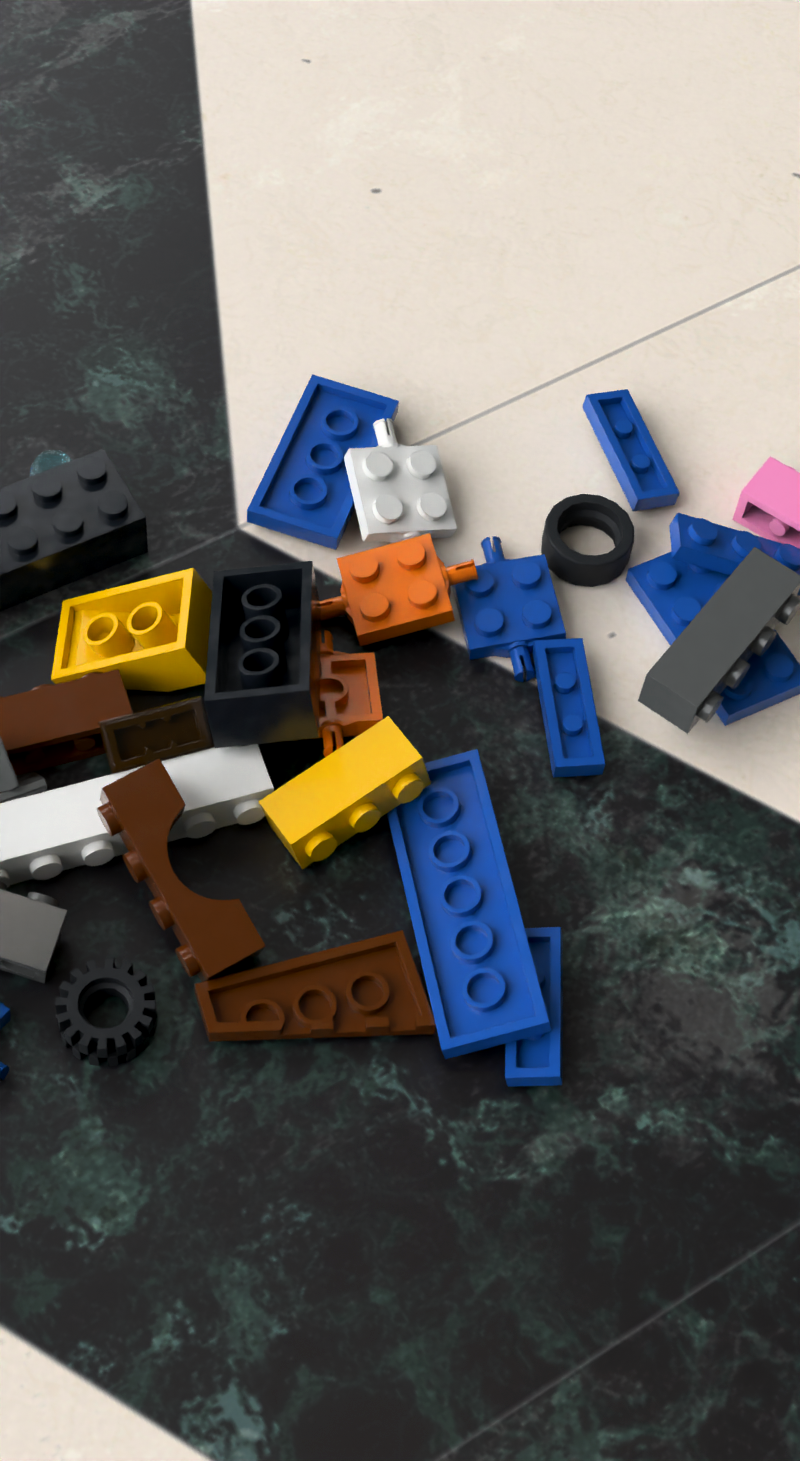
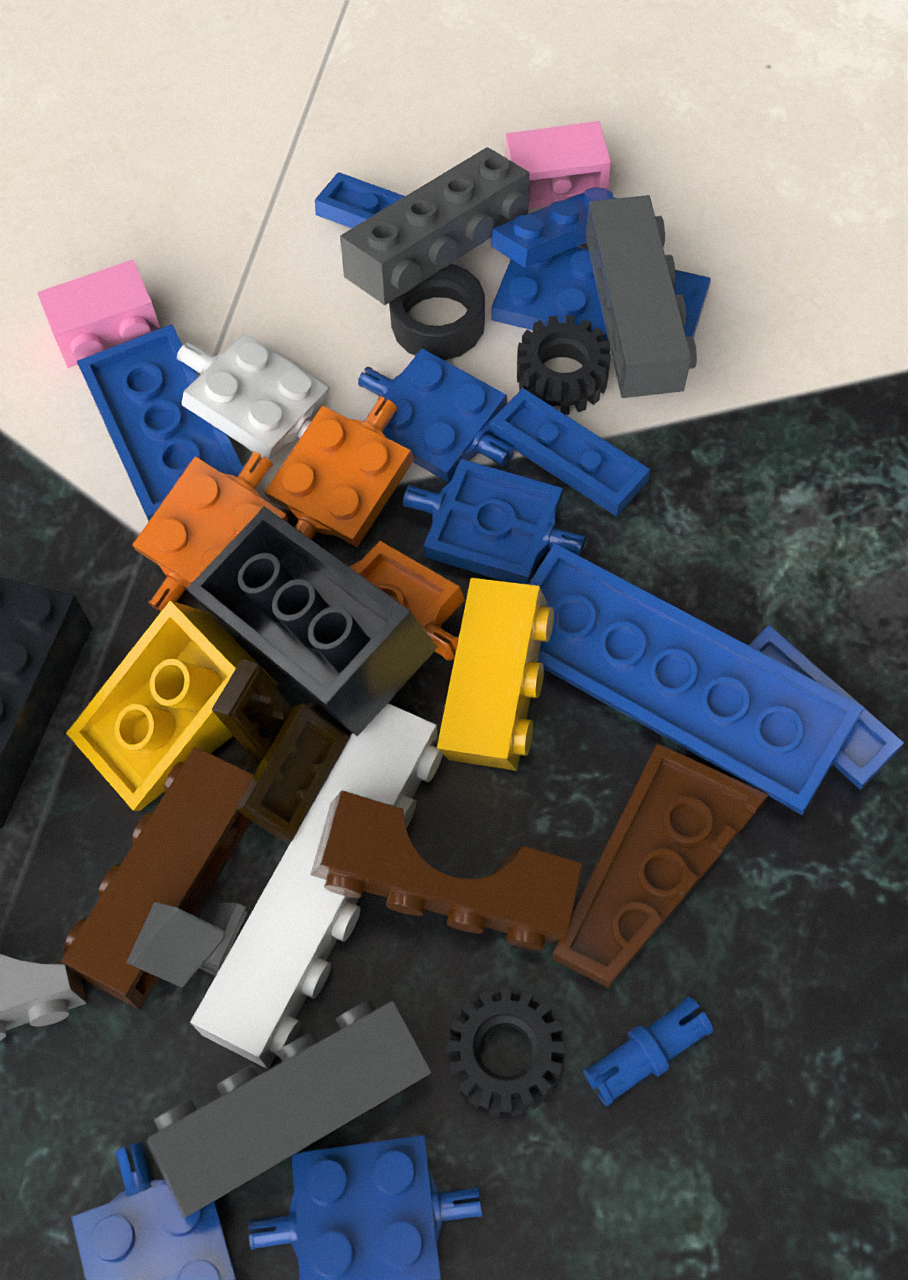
camera: 35 degrees left, 5 degrees up
(172, 672) = (252, 709): none -> dark brown plate
(189, 1094) = (648, 1051): none -> blue pin
(278, 536) = (199, 521): none -> orange plate
(362, 354) = (98, 311): none -> bright pink brick
(463, 705) = (492, 522): none -> blue plate
(633, 625) = (570, 342): none -> black tyre
(640, 477) = (434, 225): none -> dark grey brick

